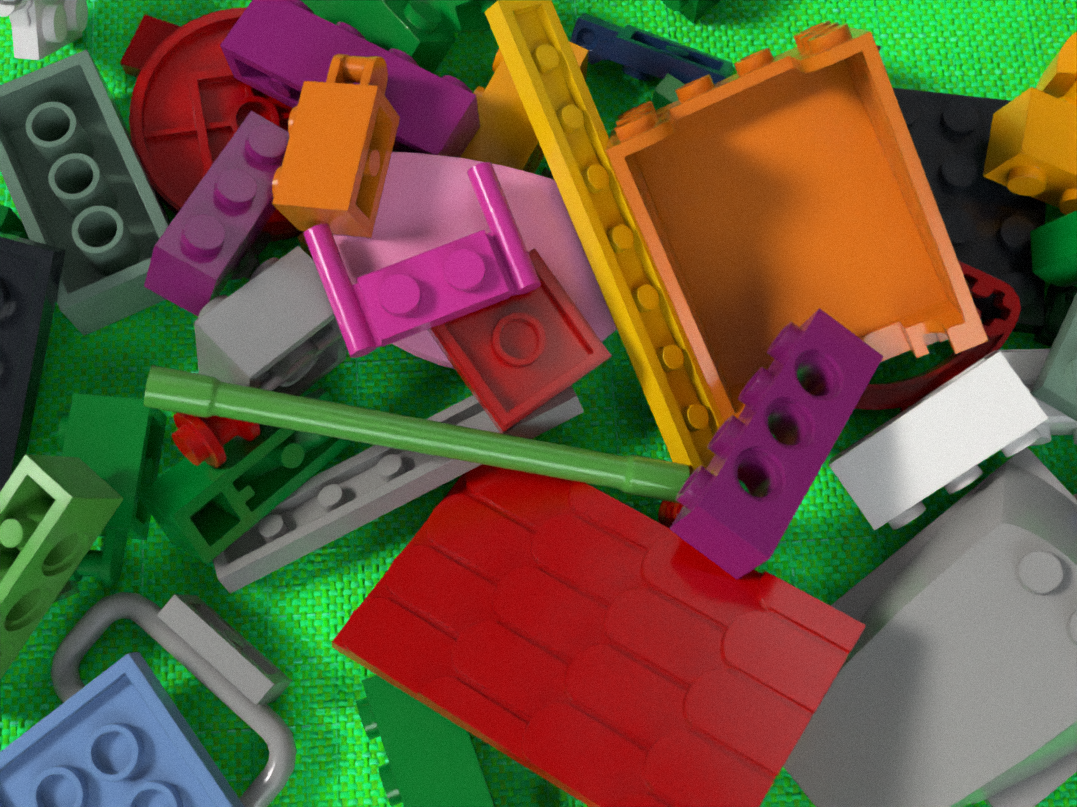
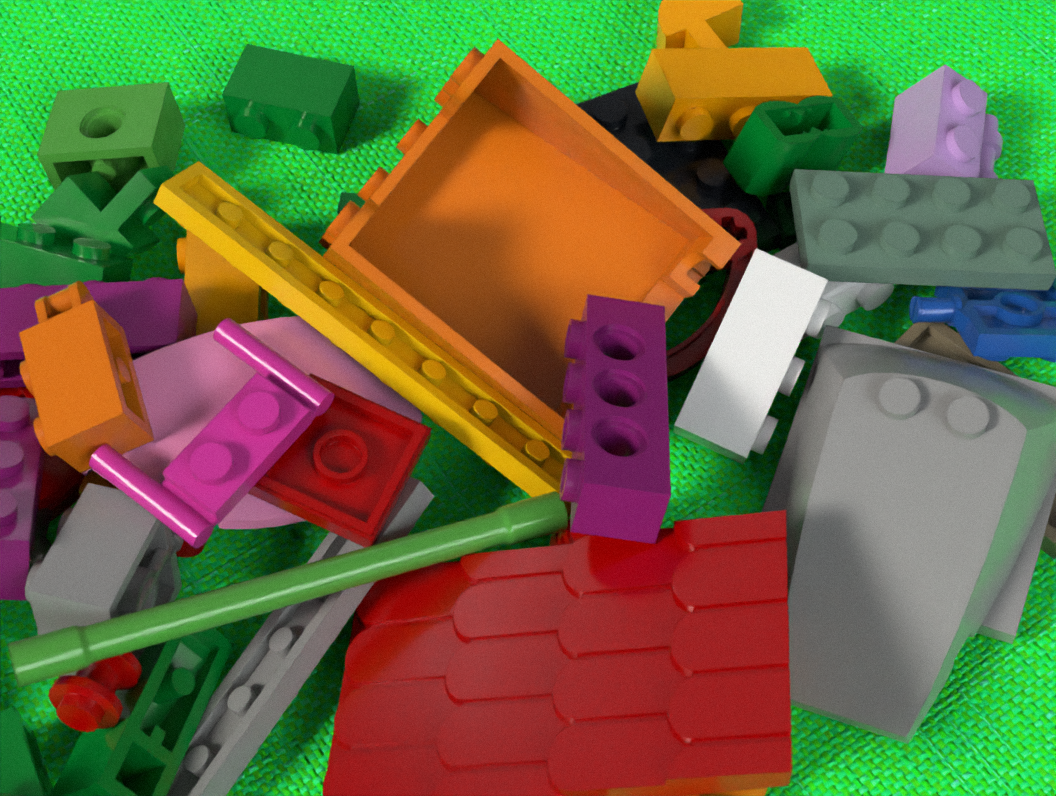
camera: 25 degrees left, 15 degrees down
(644, 53) = (307, 194): dark blue hinge -> none

